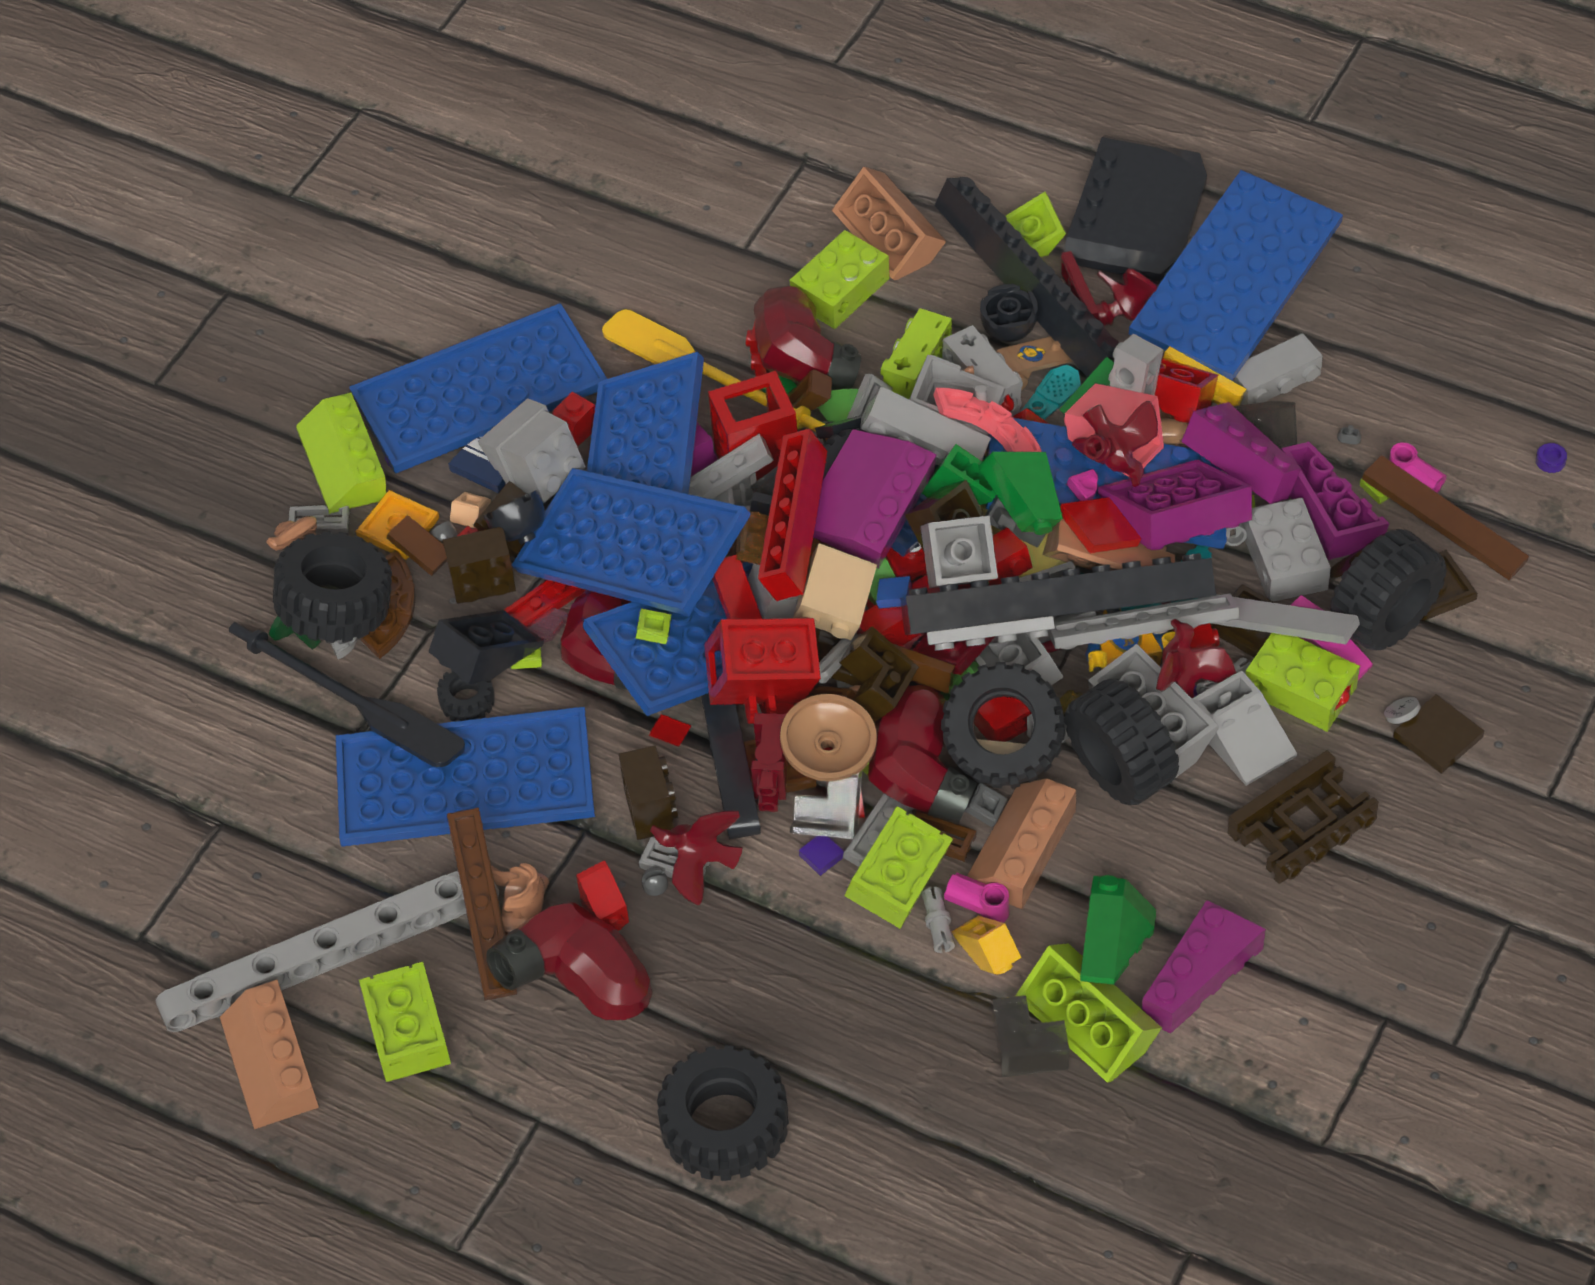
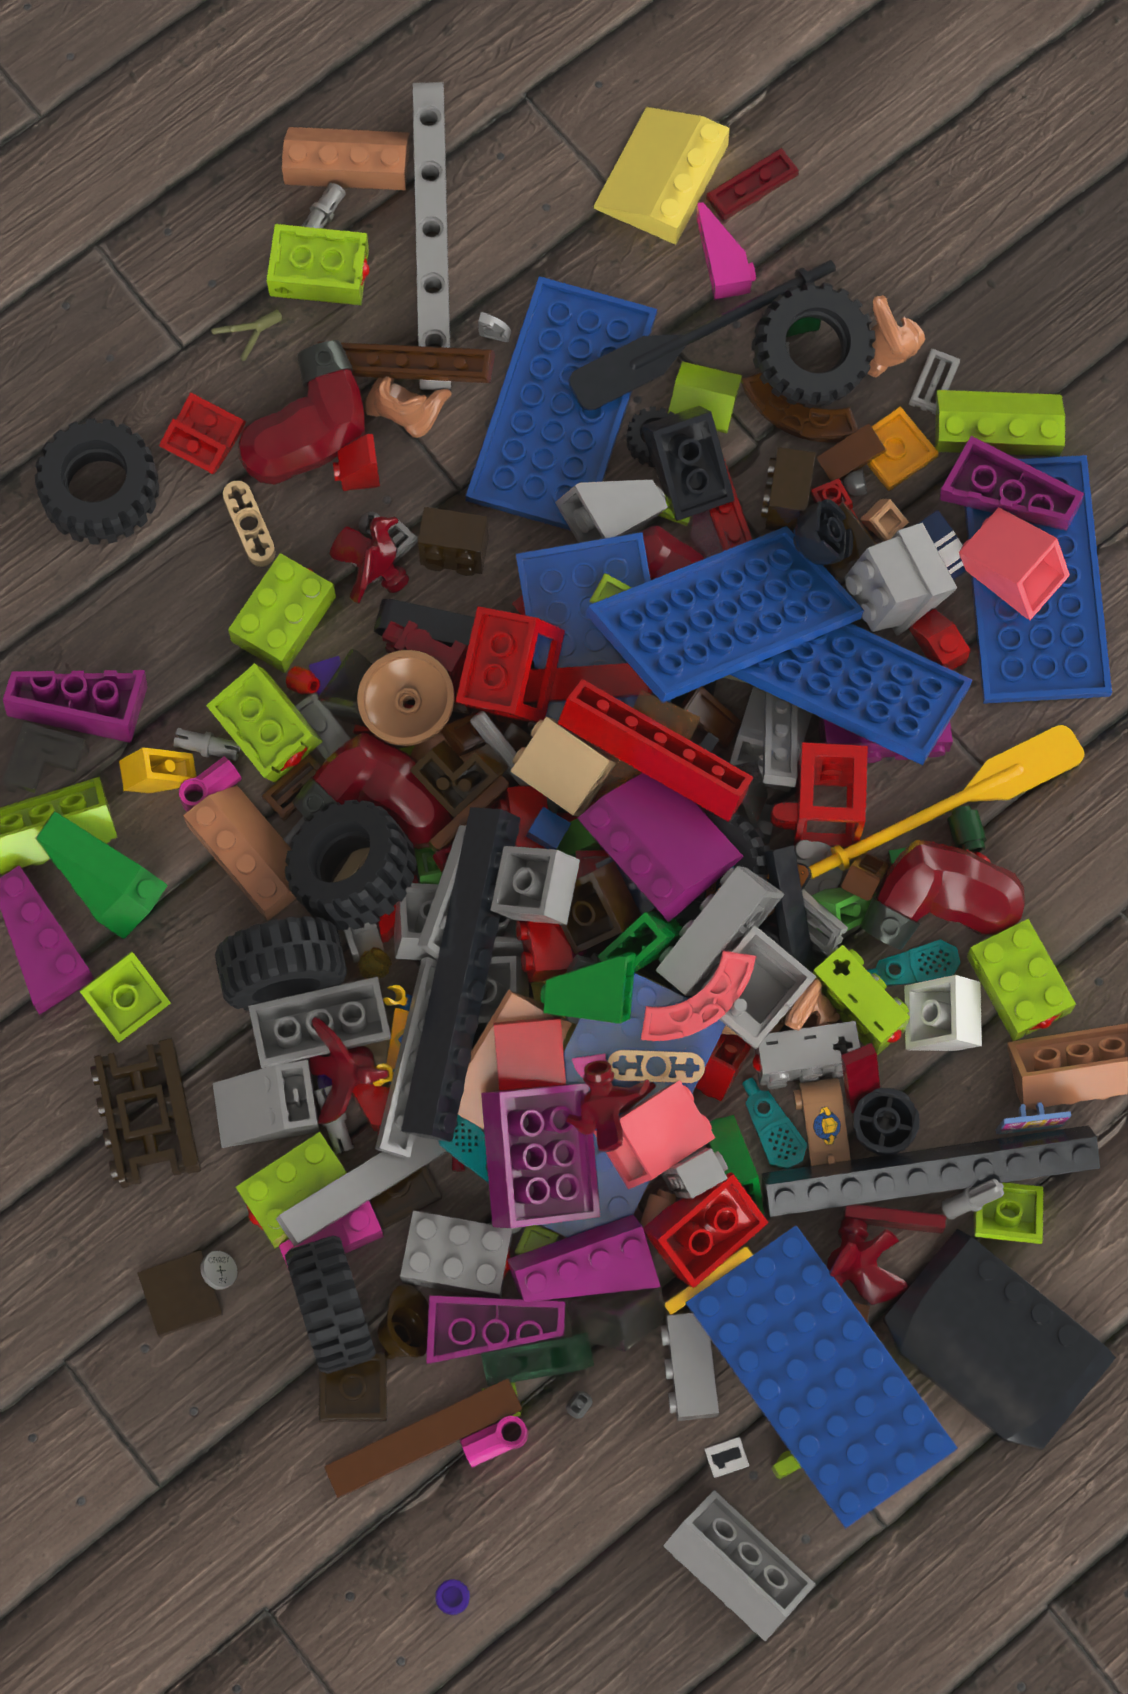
camera: 110 degrees right, 20 degrees up
(170, 719) = (752, 184): none -> dark red tile
(185, 786) = (663, 171): none -> light yellow slope
(258, 708) = (724, 257): none -> dark pink slope
(341, 1052) = (323, 210): none -> light grey pin
(406, 675) = (706, 388): none -> lime slope
(408, 417) = (992, 479): none -> magenta wedge
(409, 862) = (493, 328): none -> light grey tile
(475, 387) = (1015, 561): none -> coral slope
(489, 1057) = (257, 326): none -> olive plant
(566, 675) = (610, 507): none -> light grey slope
(625, 1058) = (202, 433): none -> red slope
(696, 993) = (265, 538): none -> tan beam
(730, 353) = (967, 829): none -> dark green brick
(780, 906) = (282, 613): none -> lime piece
(839, 863) = (302, 681): none -> red hose
(854, 336) = (910, 965): none -> teal piece
(888, 313) = (943, 1014): none -> white slope
(950, 1023) = (78, 701): none -> magenta wedge
(955, 227) = (1034, 1122): none -> piece
(983, 323) = (860, 1074): none -> dark red tile
(1035, 240) = (972, 1198): none -> light grey axle
(1058, 432) = (680, 1074): none -> tan beam
(1211, 878) = (125, 997): none -> lime slope
(1311, 289) = (785, 1465): none -> lime tile
(1328, 335) = (726, 1457): none -> white sticker
(1332, 447) = (538, 1359): none -> clear green slope
(1406, 290) = (739, 1565): none -> light grey slope

